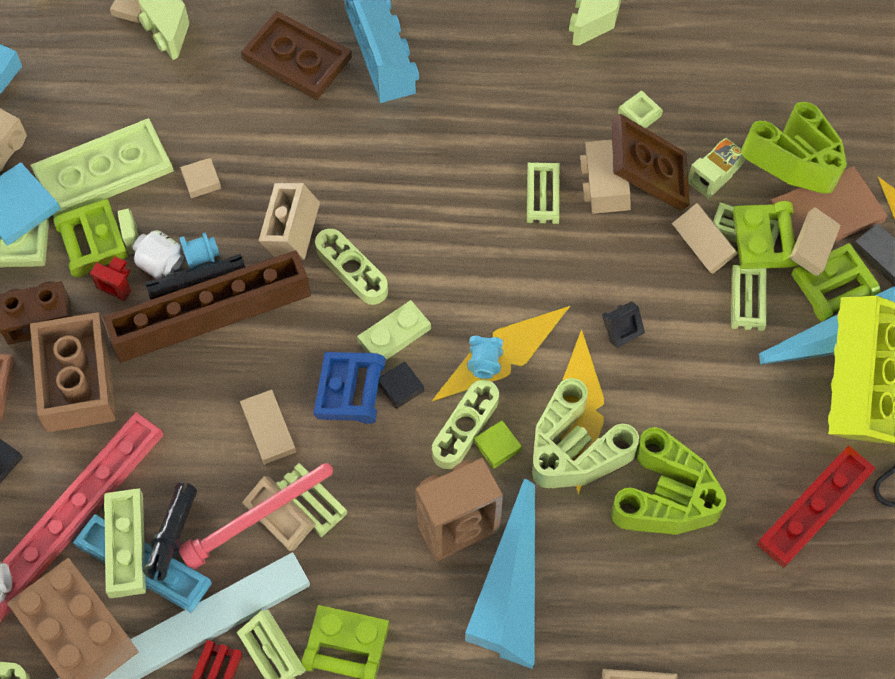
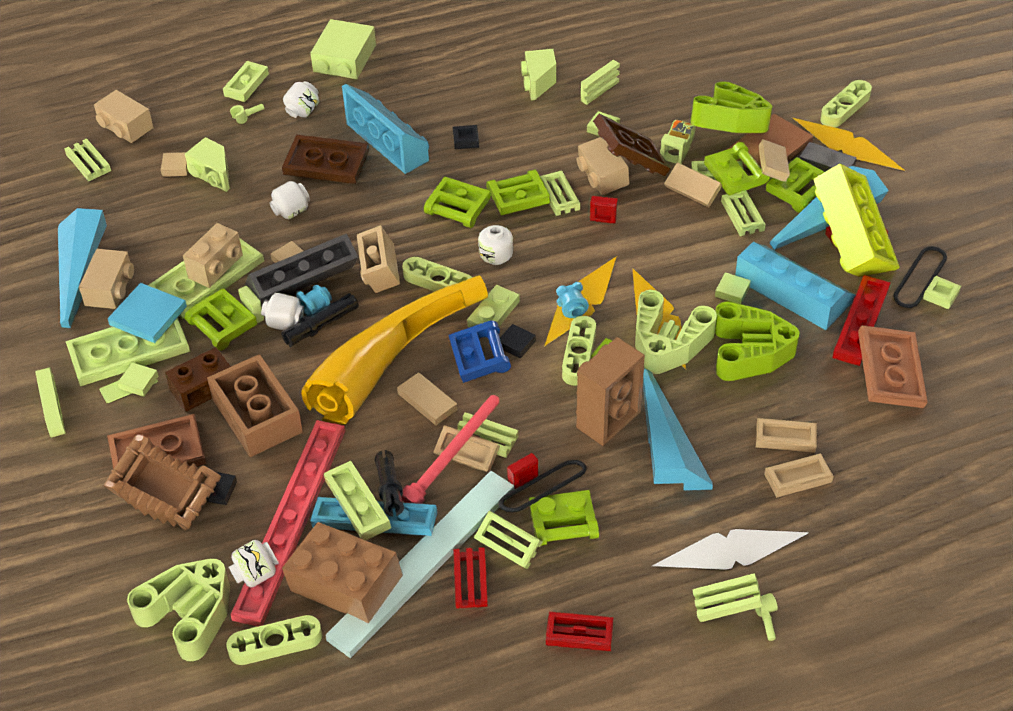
camera: 20 degrees left, 15 degrees down
(110, 153) = (212, 255): none -> tan brick
(112, 278) = (253, 339): red tile -> none
(198, 207) = (303, 268): none -> flat silver brick
(204, 360) = (355, 367): none -> yellow brick
(207, 306) = (304, 353): reddish brown brick -> none
(229, 101) = (289, 200): none -> white head
(325, 569) = (523, 470): none -> red tile
(338, 582) = (548, 492): none -> black piece
(425, 159) = (459, 195): none -> lime plate
(431, 246) = (495, 244): none -> white head
(470, 75) = (465, 137): none -> black tile
(494, 184) = (518, 192): none -> lime plate
(581, 238) = (603, 209): none -> red tile
(623, 324) = (663, 252): black tile -> none
(650, 630) = (786, 435): none -> tan tile
(662, 49) = (599, 82): none -> yellowish green tile
(684, 402) = (732, 288): none -> yellowish green tile
(760, 424) = (793, 285): none -> medium azure slope
(819, 588) = (892, 367): none -> nougat tile

